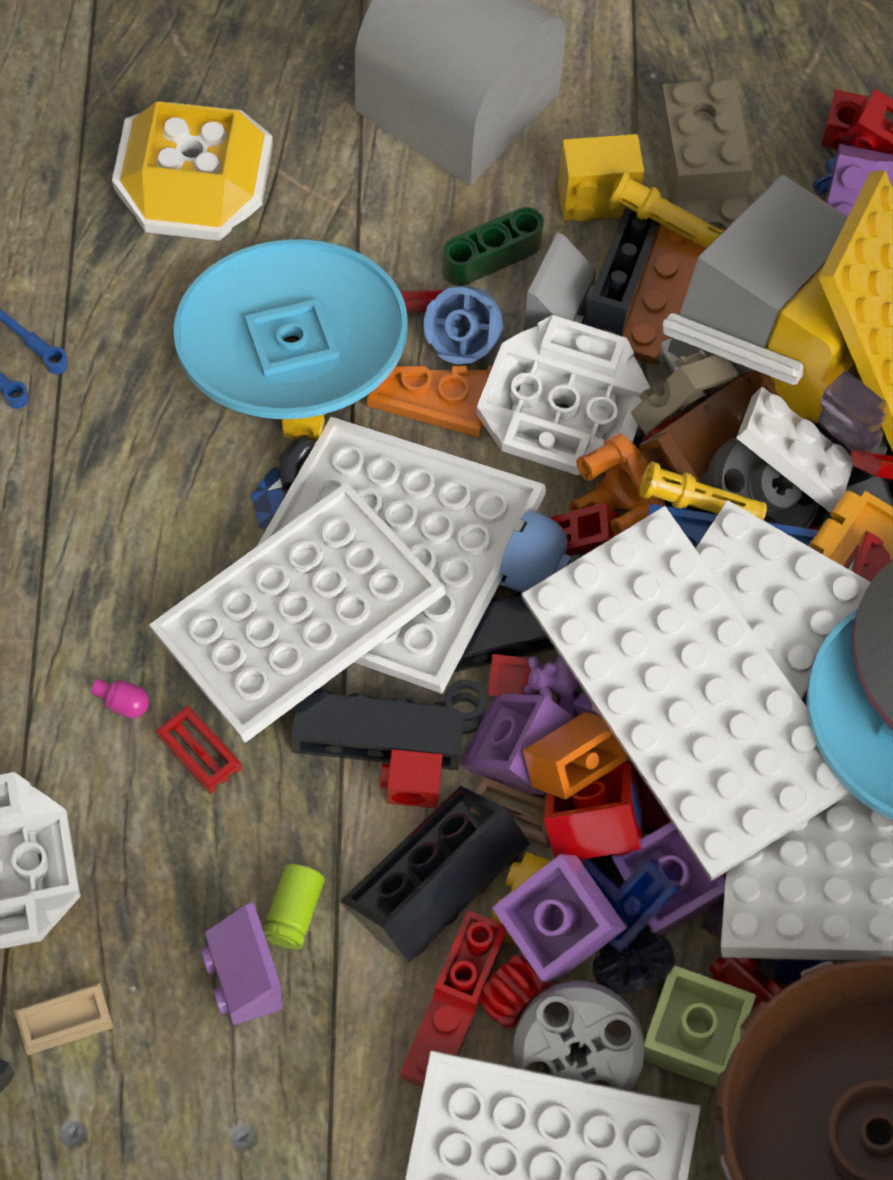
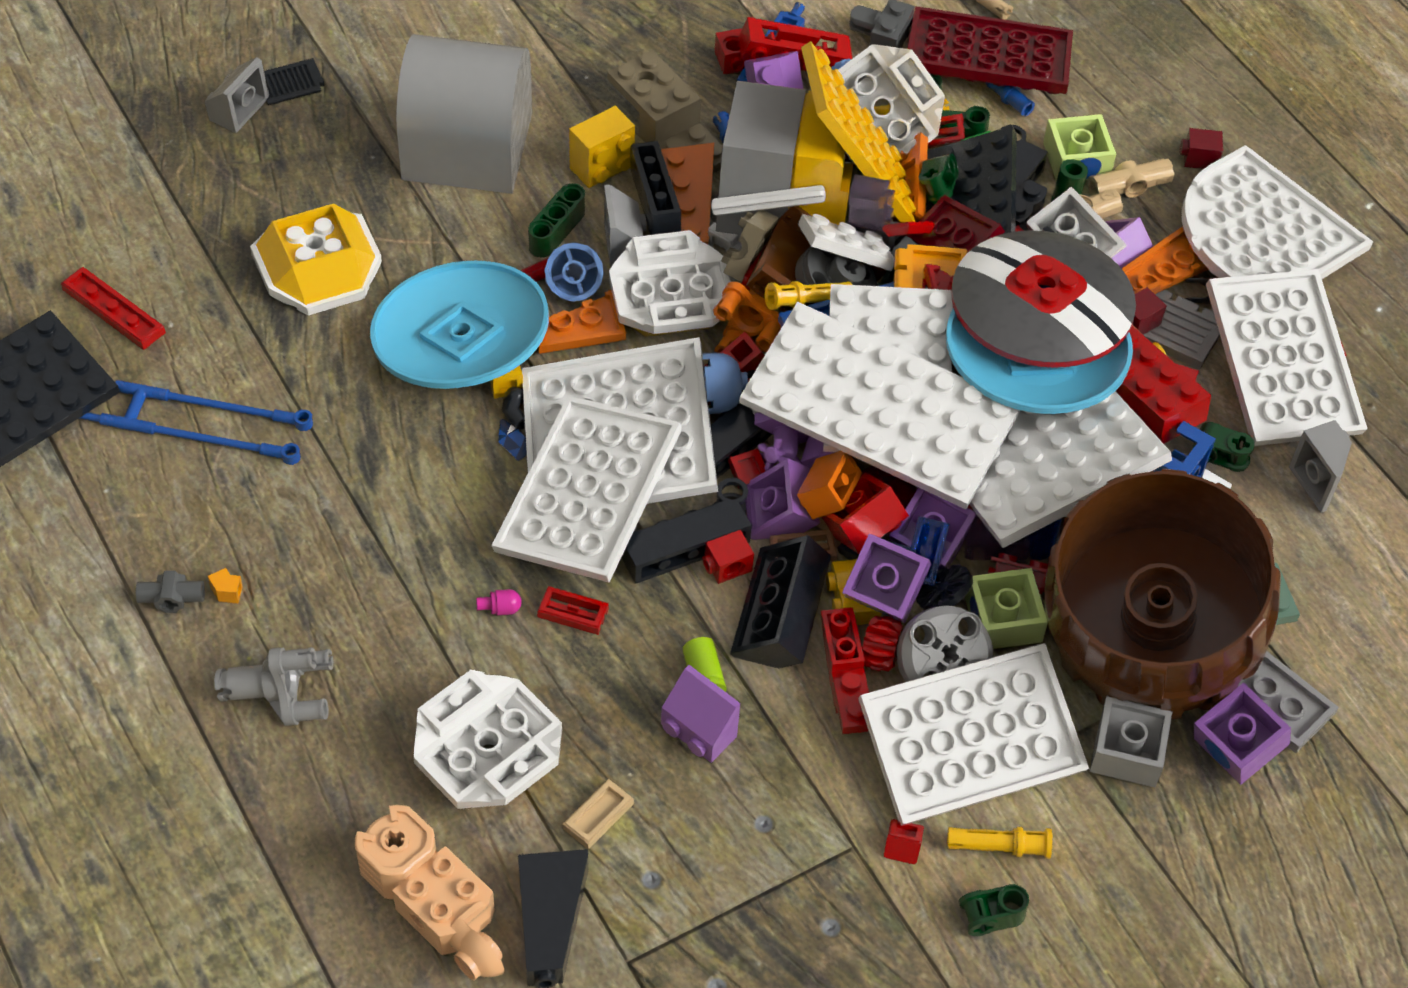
camera: 30 degrees left, 10 degrees down
(650, 204) = (652, 144): yellow pin -> none

